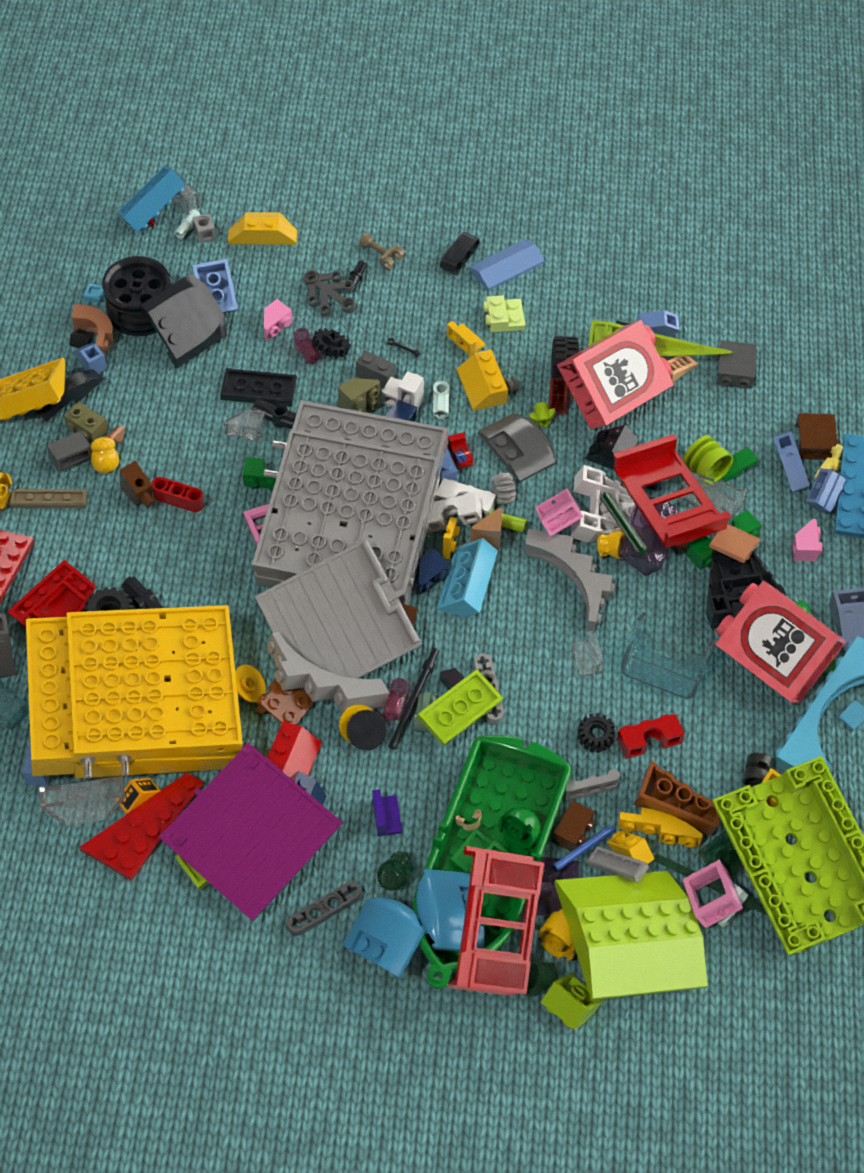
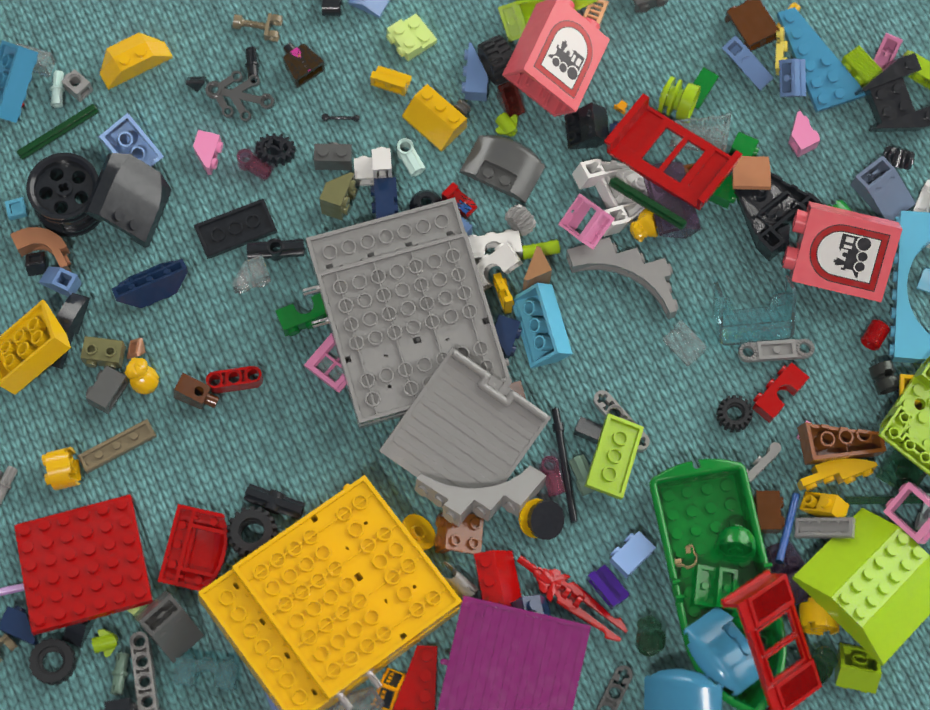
camera: 30 degrees left, 15 degrees up
(158, 394) = (151, 284): none -> dark blue wedge
(171, 253) = (57, 131): none -> dark green axle
(256, 739) = (460, 583): none -> light grey piece
(299, 268) = (195, 82): none -> black slope
(342, 789) = (554, 583): none -> red sword
(398, 293) = (302, 63): none -> dark brown torso
(425, 797) = (632, 554): none -> light blue brick
(536, 370) = (476, 77): none -> medium blue slope
(669, 701) = (776, 350): none -> light grey plate
(771, 732) = (875, 334): none -> red piece

